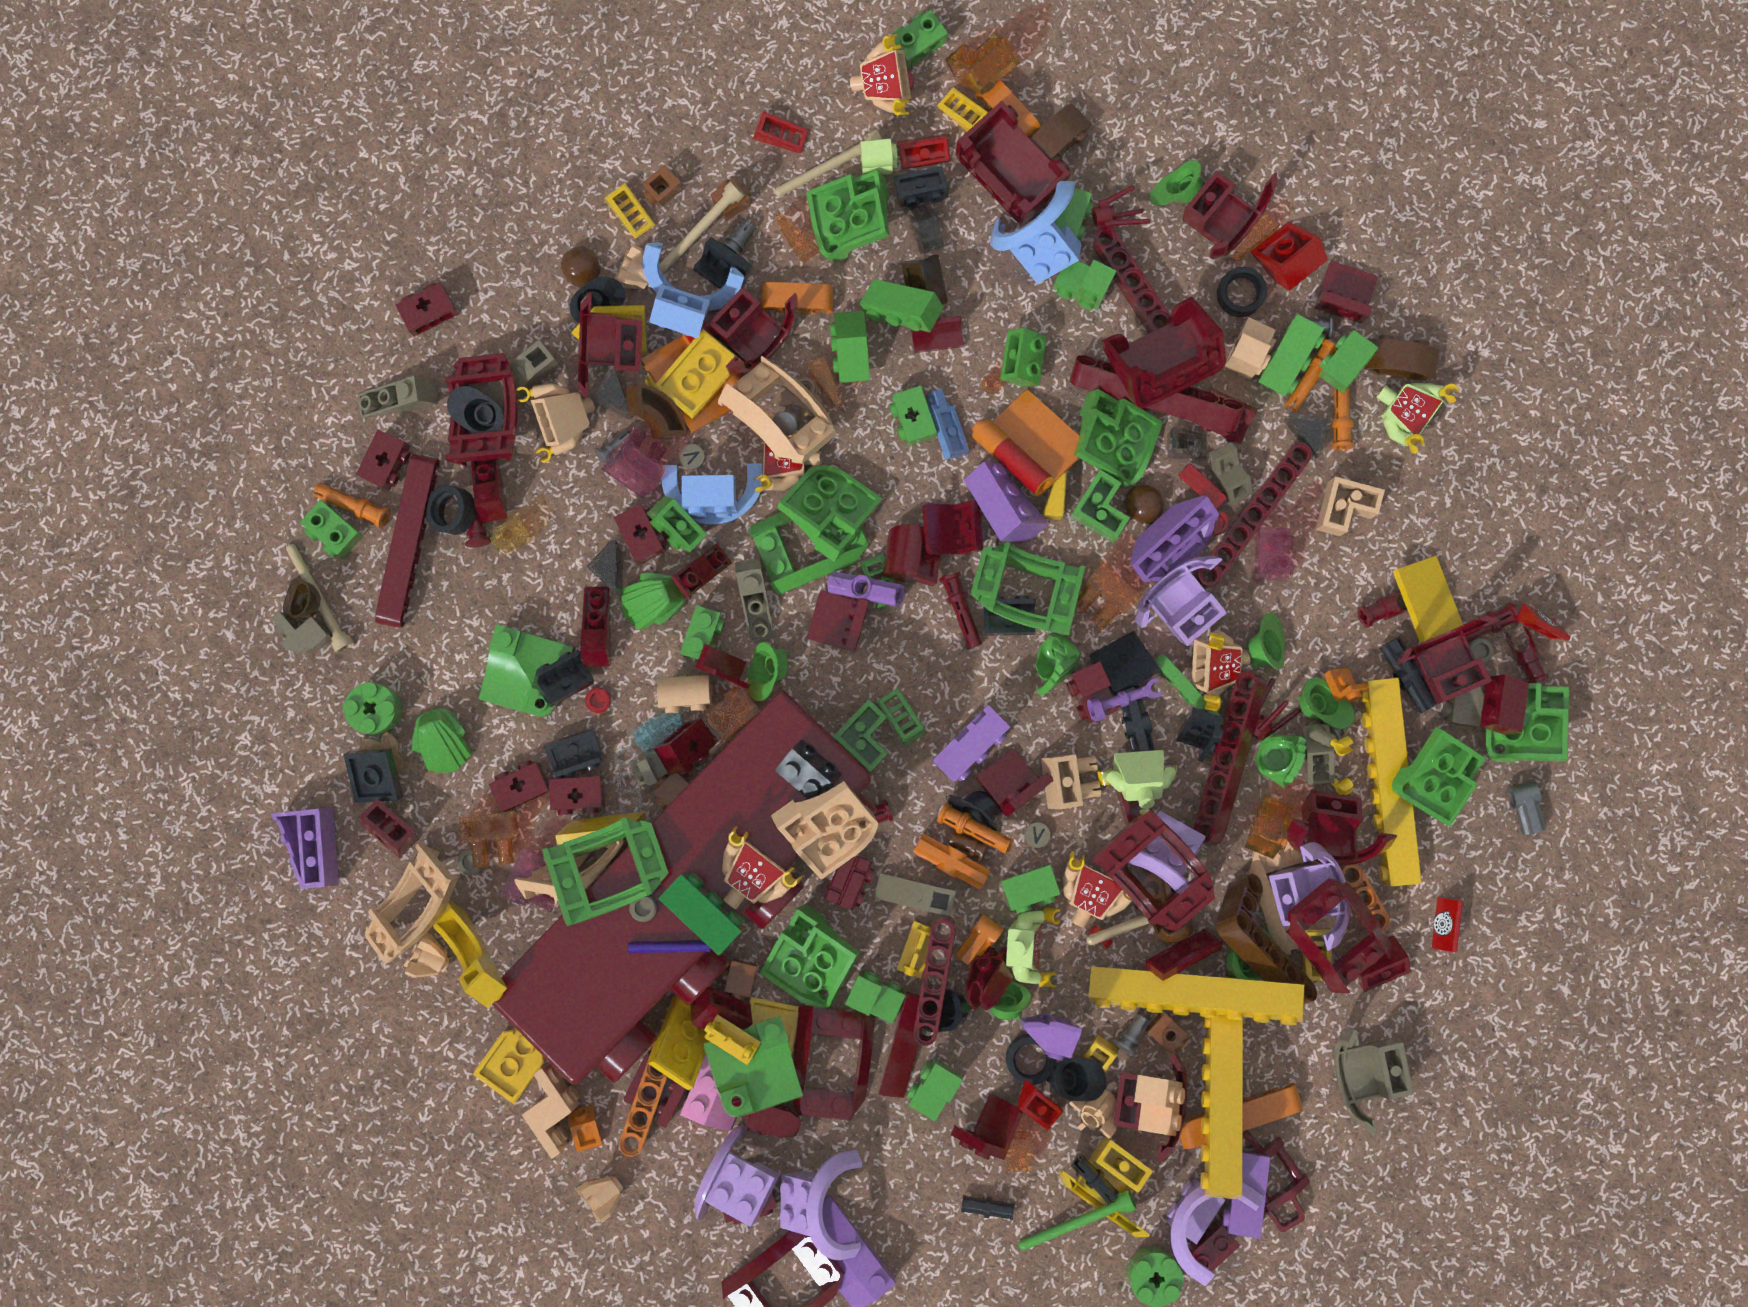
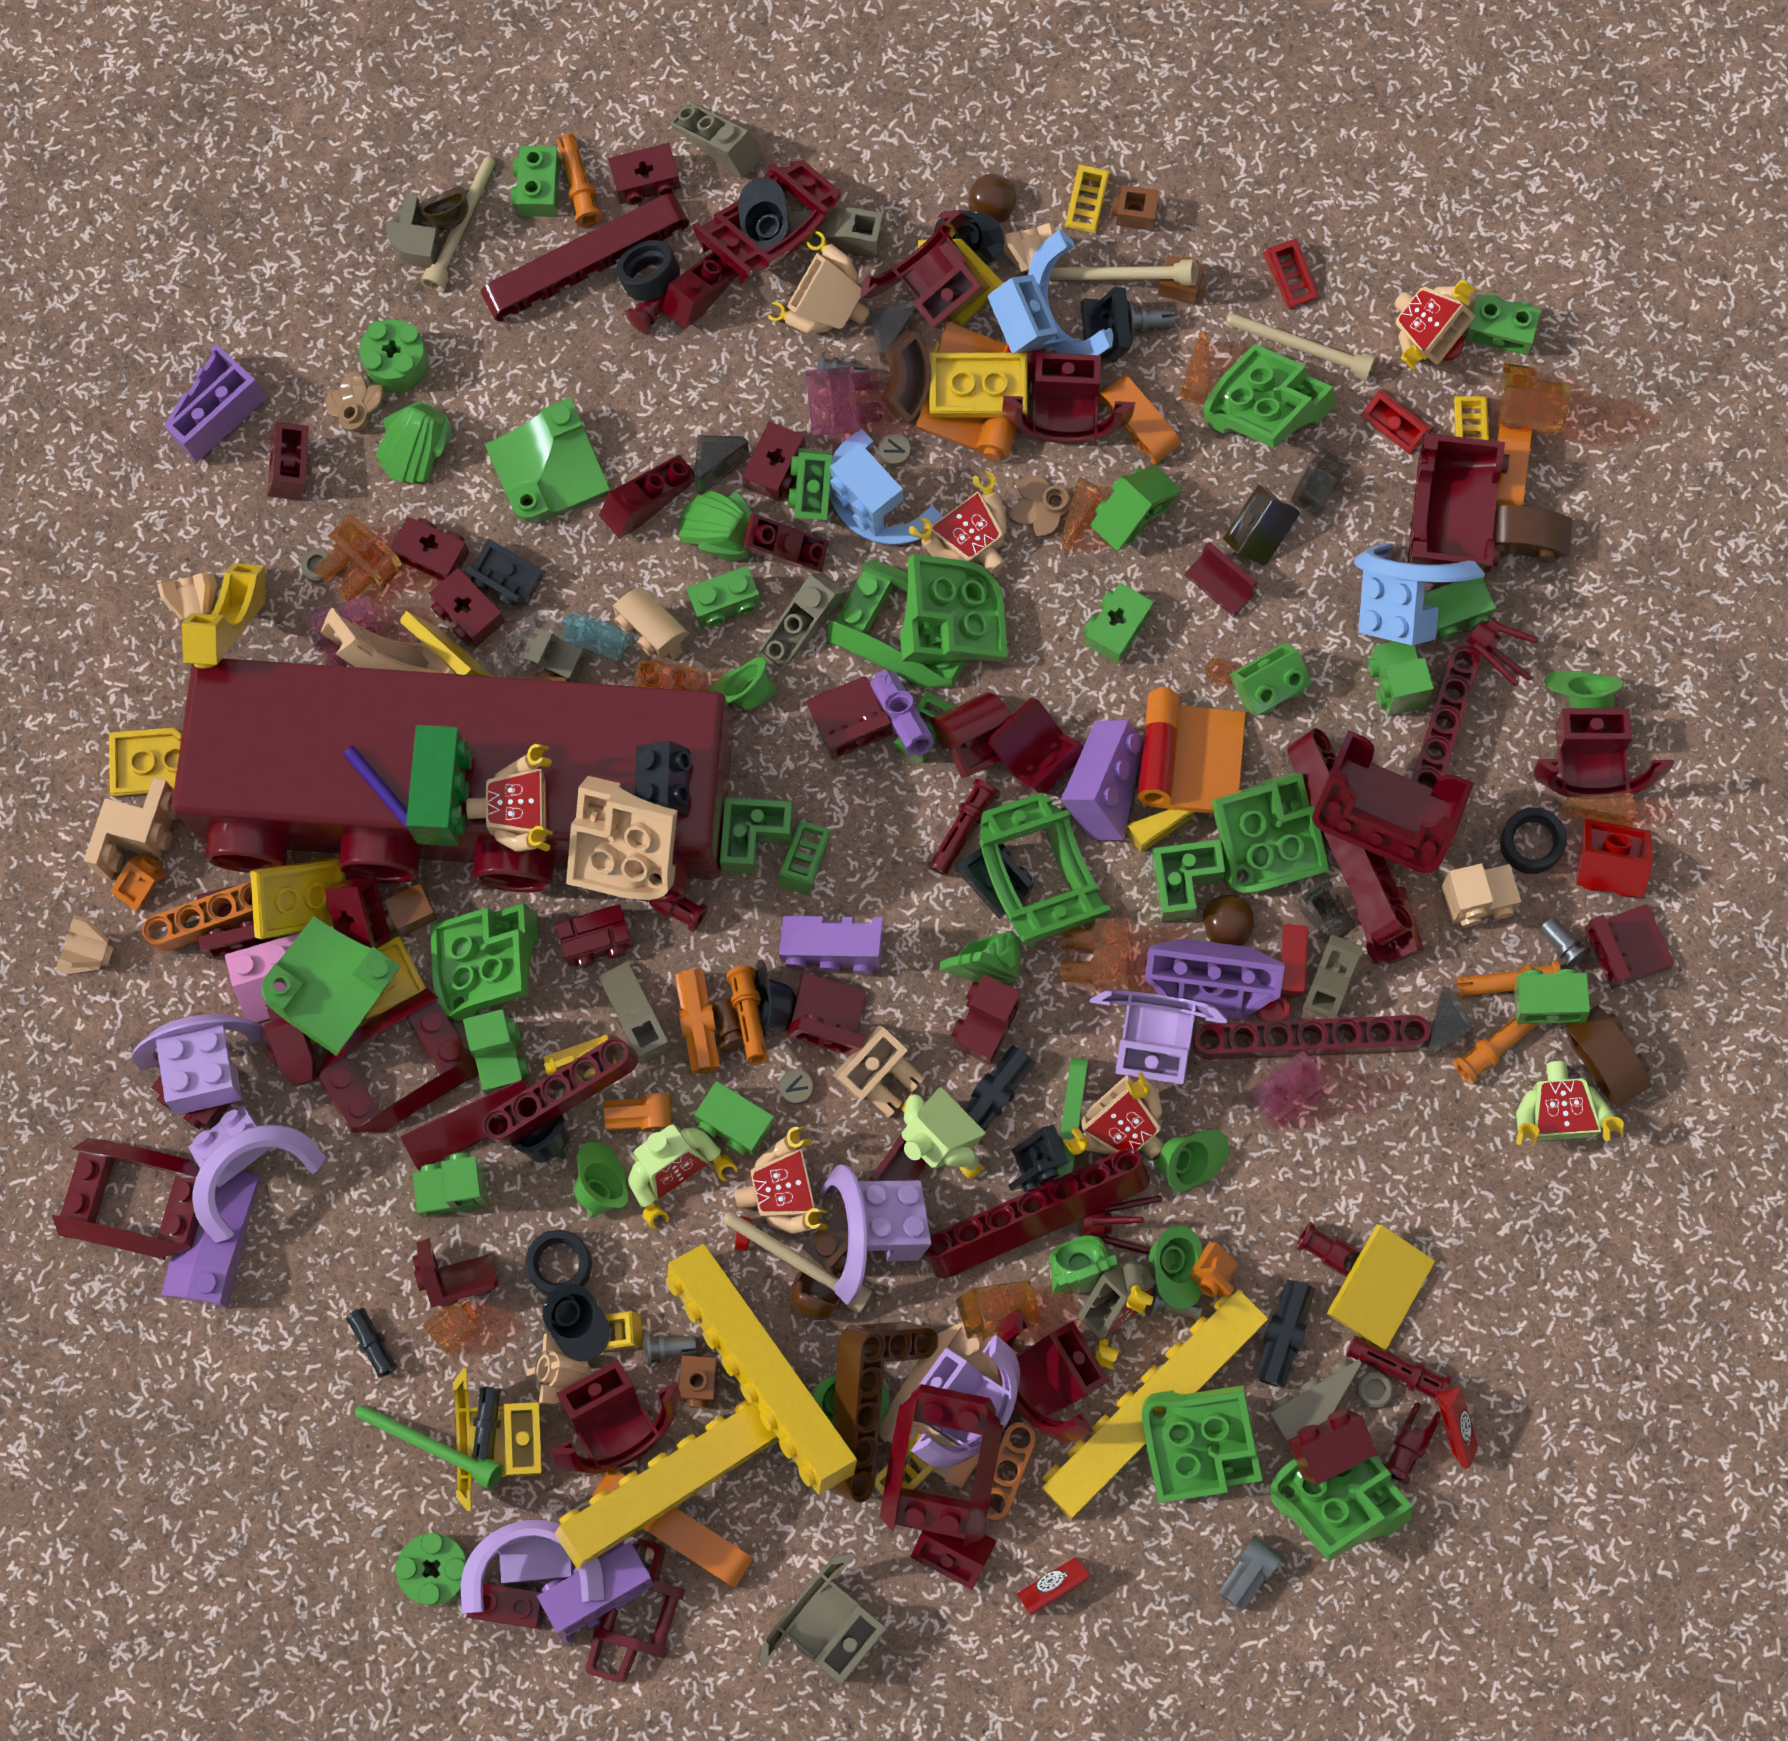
camera: 55 degrees right, 10 degrees down
(373, 775) = (328, 406): black plate -> none
(439, 305) = (826, 95): dark red brick -> none
(440, 884) = (268, 529): light nougat wedge -> none
(519, 537) = (674, 354): clear yellow brick -> none
(562, 678) = (569, 500): black bracket -> none
(568, 882) = (369, 637): bright green wedge -> none
(598, 700) = (576, 555): red tile -> none
(644, 909) = (398, 733): dark tan tile -> none
(685, 746) = (582, 659): dark red brick -> none
(722, 665) = (708, 639): dark red panel -> none
(732, 1039) = (339, 935): yellow hinge -> none
(755, 384) = (1017, 446): light nougat wedge -> none
(787, 420) = (1002, 502): flat silver pin -> none
(878, 155) = (1347, 376): yellowish green brick -> none
(901, 305) = (1216, 517): bright green brick -> none
(921, 187) = (1356, 446): black bracket -> none
(947, 426) = (1136, 664): medium blue hinge -> none
(988, 979) = (602, 1146): dark red hinge -> none
(1038, 1105) = (516, 1304): red slope -> none
(1053, 1034) = (597, 1249): medium lavender wedge -> none
(1097, 708) = (1004, 1052): medium lavender piece -> none
(1125, 662) = (1045, 1029): black plate -> none
(1129, 843) = (848, 1163): dark red wedge -> none
(1159, 1104) = (616, 1419): light nougat brick -> none
(1183, 954) = (792, 1327): dark red tile -> none
(1291, 355) = (1509, 939): bright green brick -> none
(1344, 499) = (1407, 1113): light nougat brick -> none
(1449, 662) = (1326, 1350): dark red piece -> none

